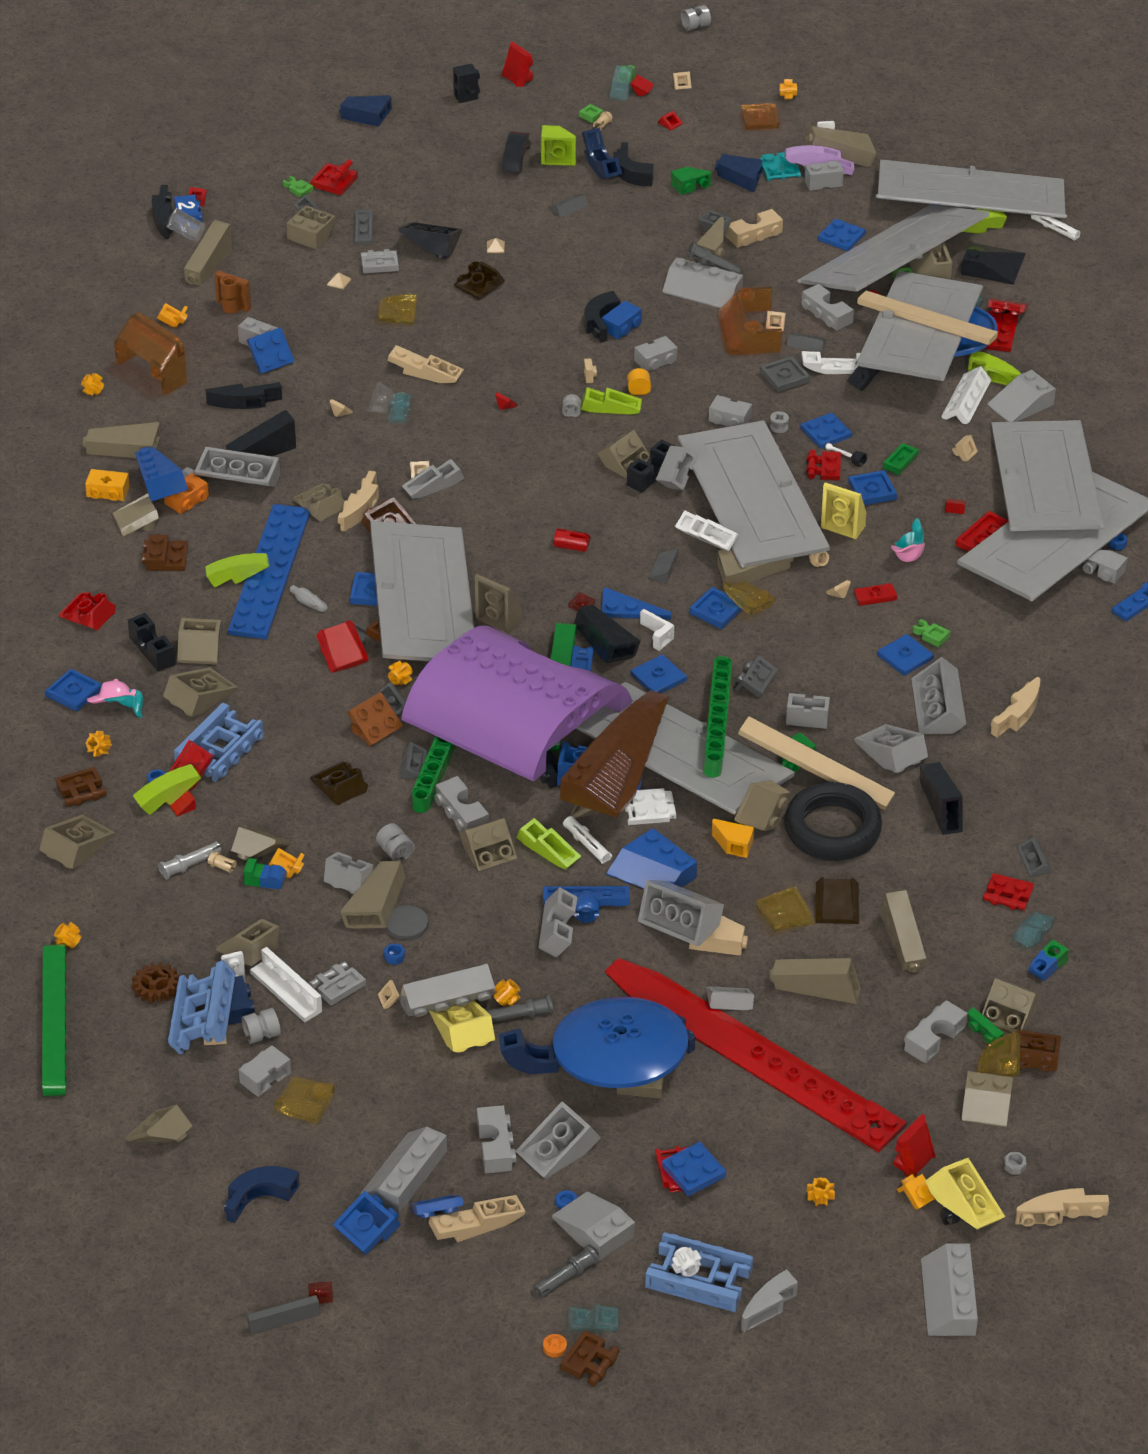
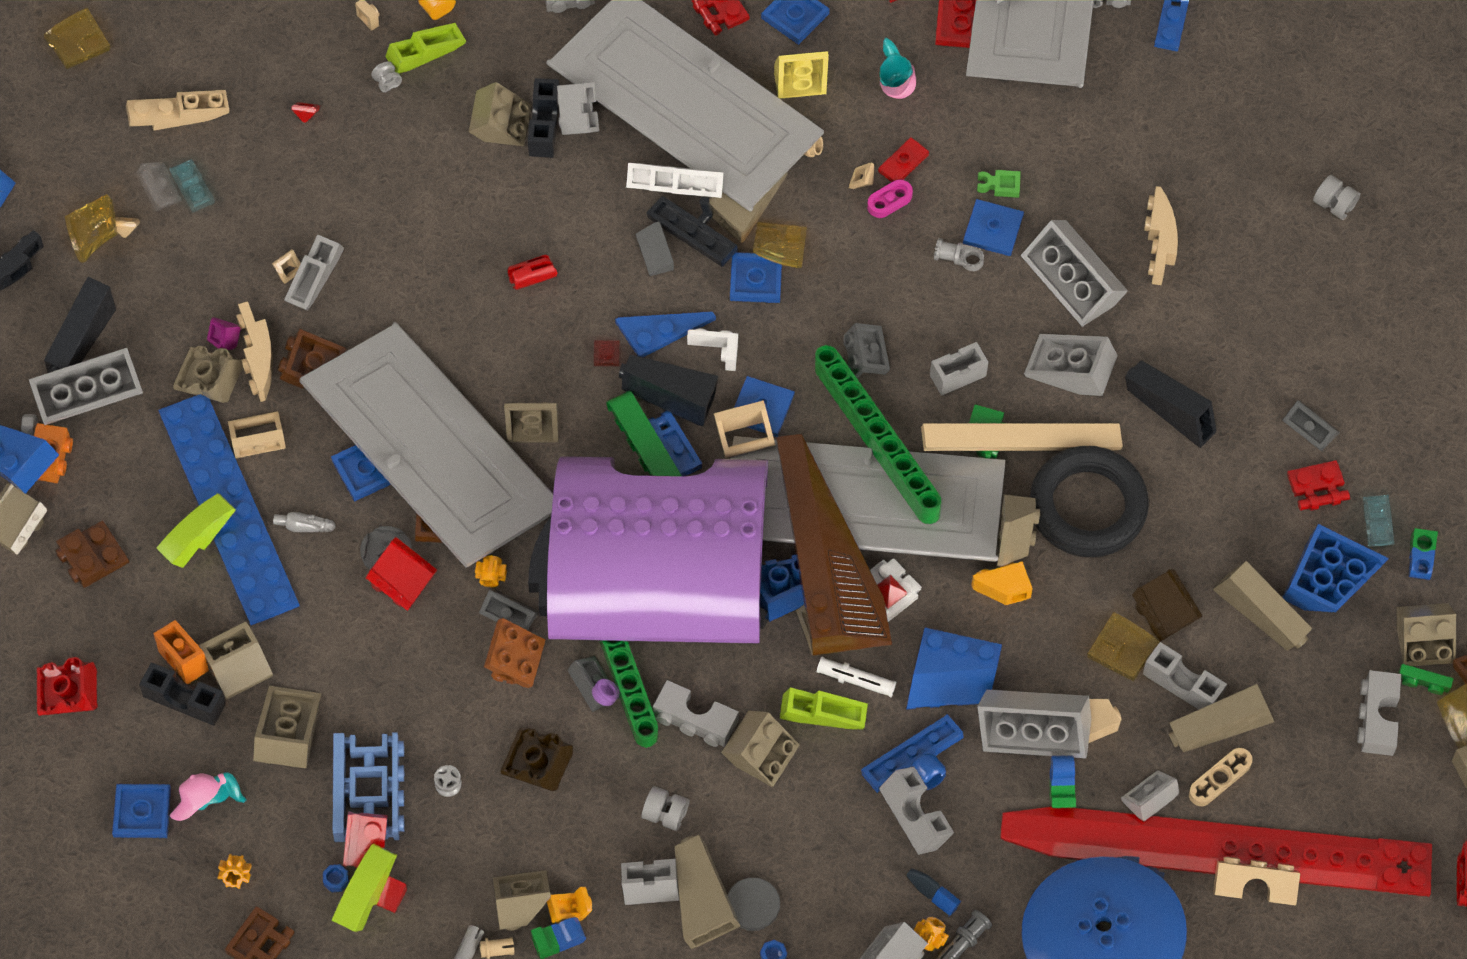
camera: 35 degrees left, 20 degrees up
(169, 619) = (181, 652): none -> orange brick
(272, 764) = (447, 775): none -> light grey wheel
(316, 397) = (91, 226): none -> clear yellow plate
(320, 543) = (259, 442): none -> tan tile
(348, 484) = (223, 334): none -> magenta slope
(413, 766) = (605, 692): none -> medium lavender tile
(531, 974) = (931, 889): none -> piece
(635, 669) = (740, 418): none -> tan tile
(649, 802) = (891, 591): none -> red slope
(672, 954) = (1062, 782): none -> leg
(696, 564) = (693, 230): none -> black plate
(742, 1065) = (1232, 877): none -> tan arch
(788, 1006) = (1229, 759): none -> tan beam
(802, 933) = (1168, 671): none -> light grey arch
(846, 607) = (887, 197): none -> dark pink plate
(866, 656) = (958, 254): none -> light grey connector
(967, 933) = (1330, 571): none -> blue wedge

